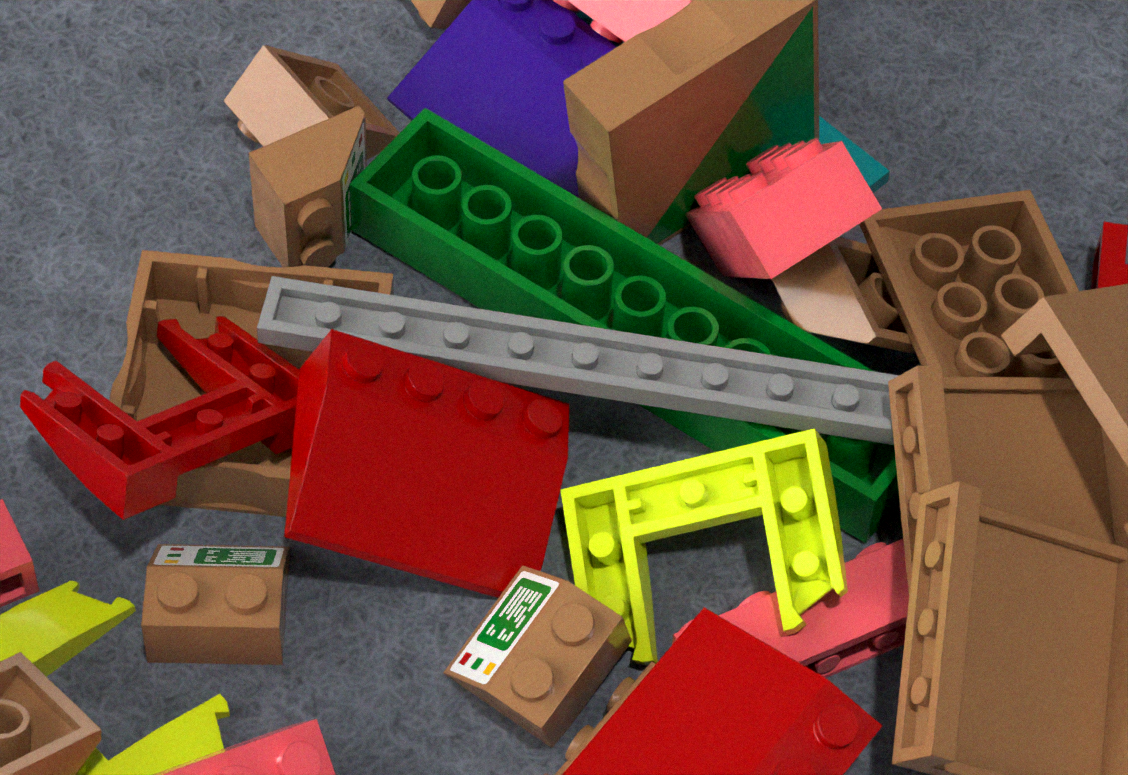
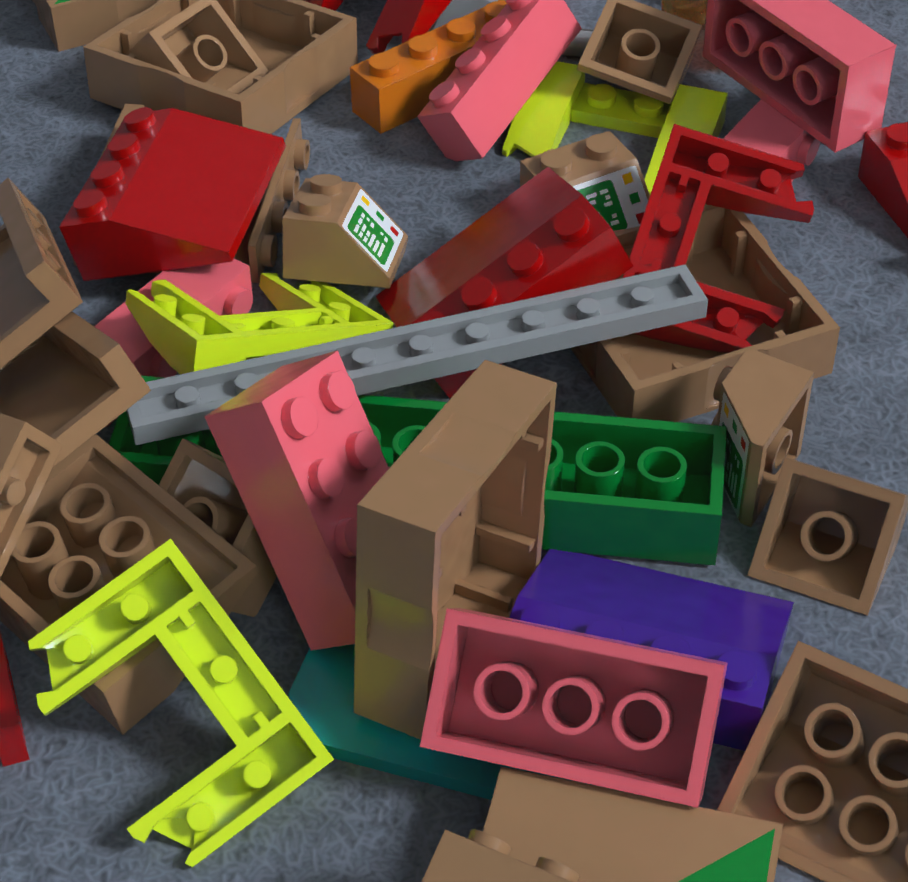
camera: 155 degrees right, 10 degrees down
(943, 150) = (170, 603): none -> neon yellow wedge

